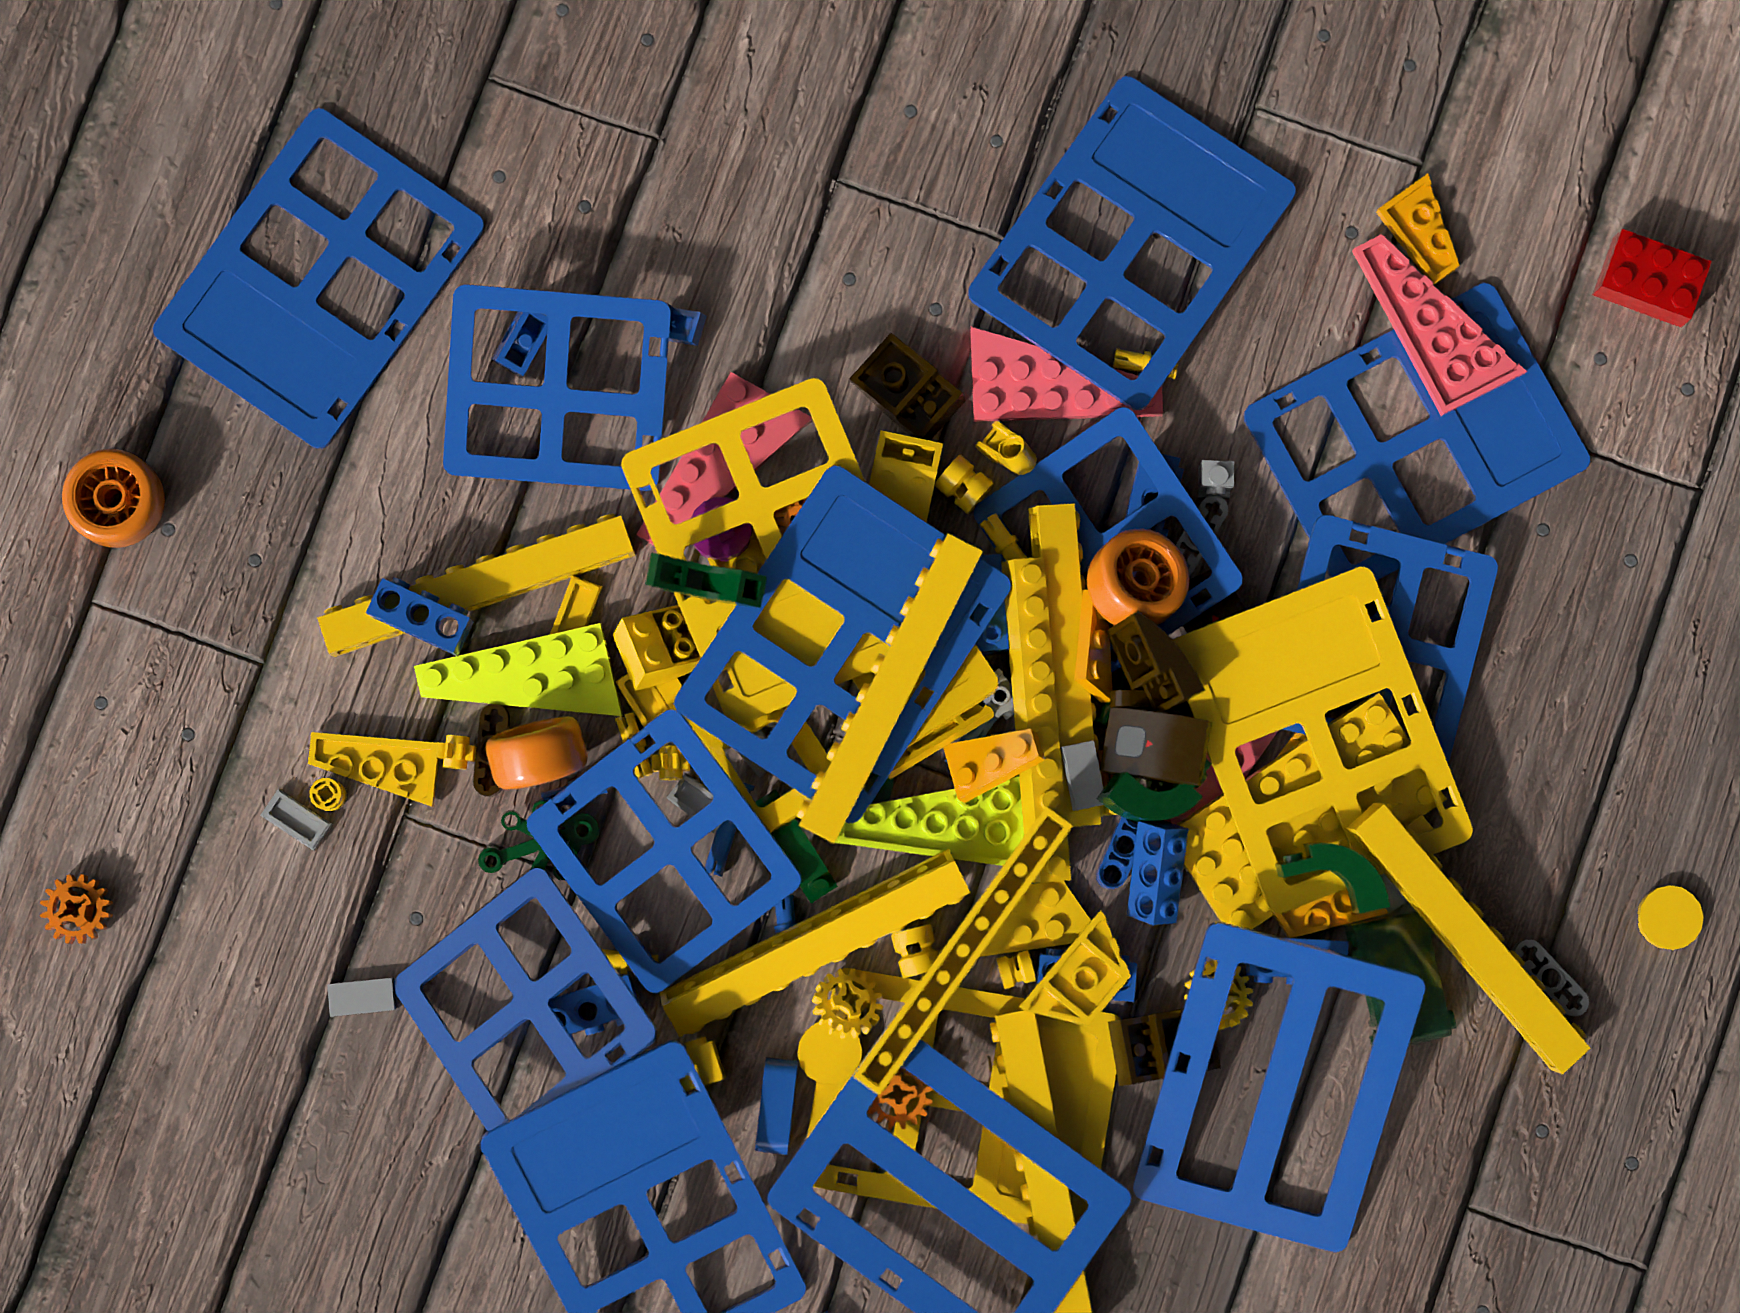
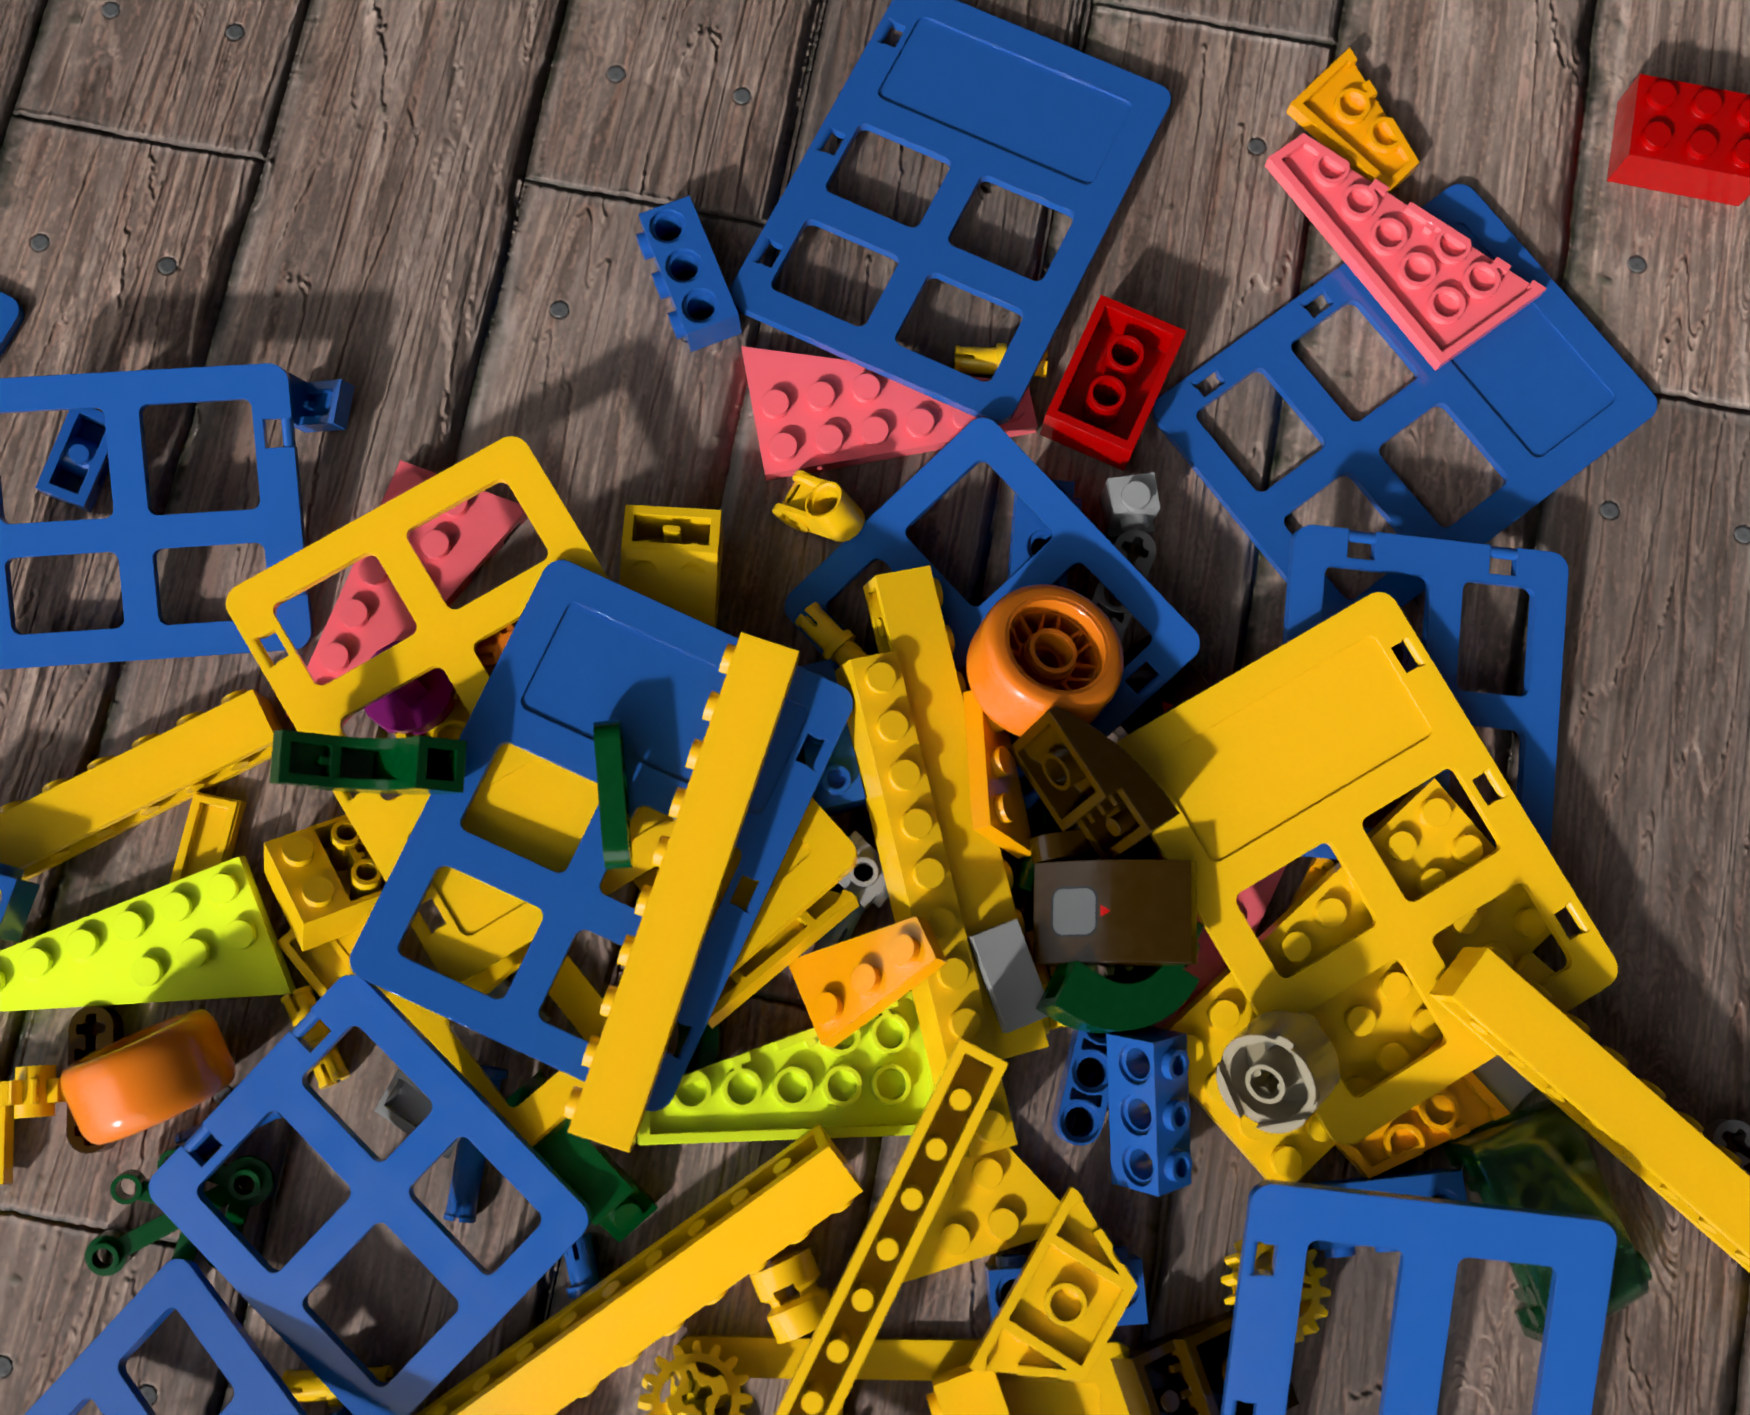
camera: 10 degrees left, 5 degrees down
(669, 763) = (366, 1060): yellow gear -> none
(852, 623) = (613, 794): none -> dark green beam
(907, 389) = (662, 445): dark brown slope -> none
(949, 256) = (688, 253): none -> blue brick
(953, 480) = (748, 559): yellow wheel -> none
(1009, 973) = (941, 1300): yellow wheel -> none
(1218, 393) = (1112, 382): none -> red brick
(1240, 858) = (1278, 1070): none -> dark tan brick
(1359, 876) = (1469, 1071): dark green arch -> none

